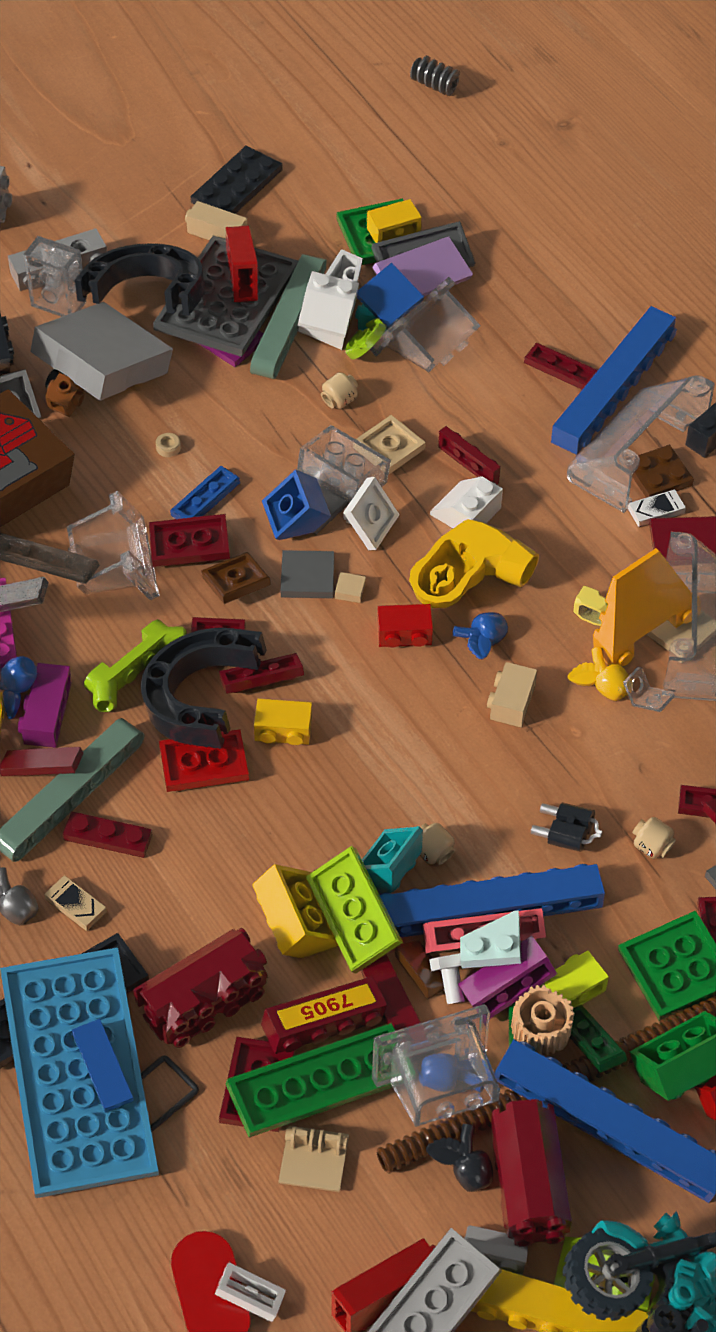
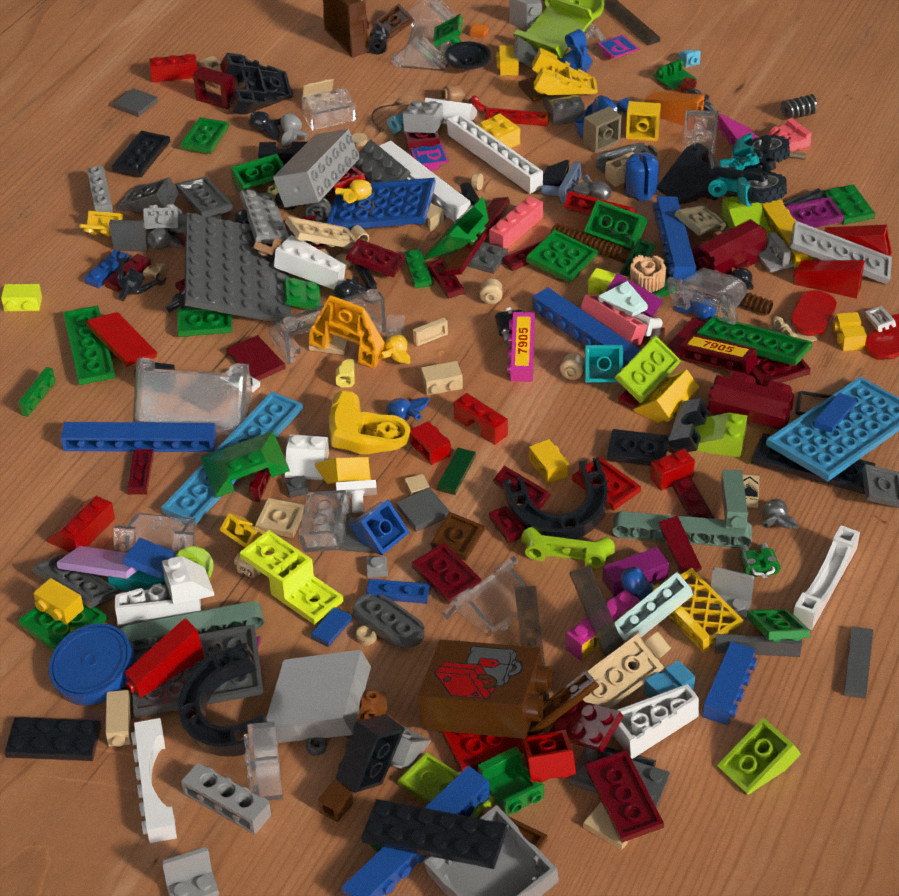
camera: 120 degrees left, 10 degrees down
(54, 847) = (734, 499): none -> sand green brick
(80, 210) = (159, 817): none -> white arch
(166, 834) = (672, 468): none -> red brick
(167, 466) = (389, 620): none -> dark grey tile
(187, 924) = (723, 434): none -> lime slope
(201, 422) = (331, 627): none -> blue tile
(209, 877) = (688, 416): none -> black arch
(235, 828) = (636, 447): none -> black plate
(253, 494) = (377, 566): none -> light grey plate
(255, 1230) = (849, 331): none -> yellow brick
(284, 398) = (291, 577): none -> neon yellow bracket
(294, 224) = (91, 663): none -> blue brick
(332, 1214) = (813, 312): none -> red tile
(344, 634) = (456, 471): none -> dark green tile
(383, 398) = (240, 529): none -> yellow brick
(387, 693) = (492, 424): none -> red arch
(411, 515) = (344, 469): none -> yellow slope
(433, 483) = (296, 486): none -> dark grey plate
(486, 435) = (243, 460): none -> green slope
(503, 799) = (522, 346): none -> dark pink brick
(504, 288) = (83, 524): none -> red slope
(523, 448) = (196, 494): none -> dark azure plate
(613, 727) = (430, 332): none -> tan tile
(633, 1185) = (701, 220): none -> dark tan tile

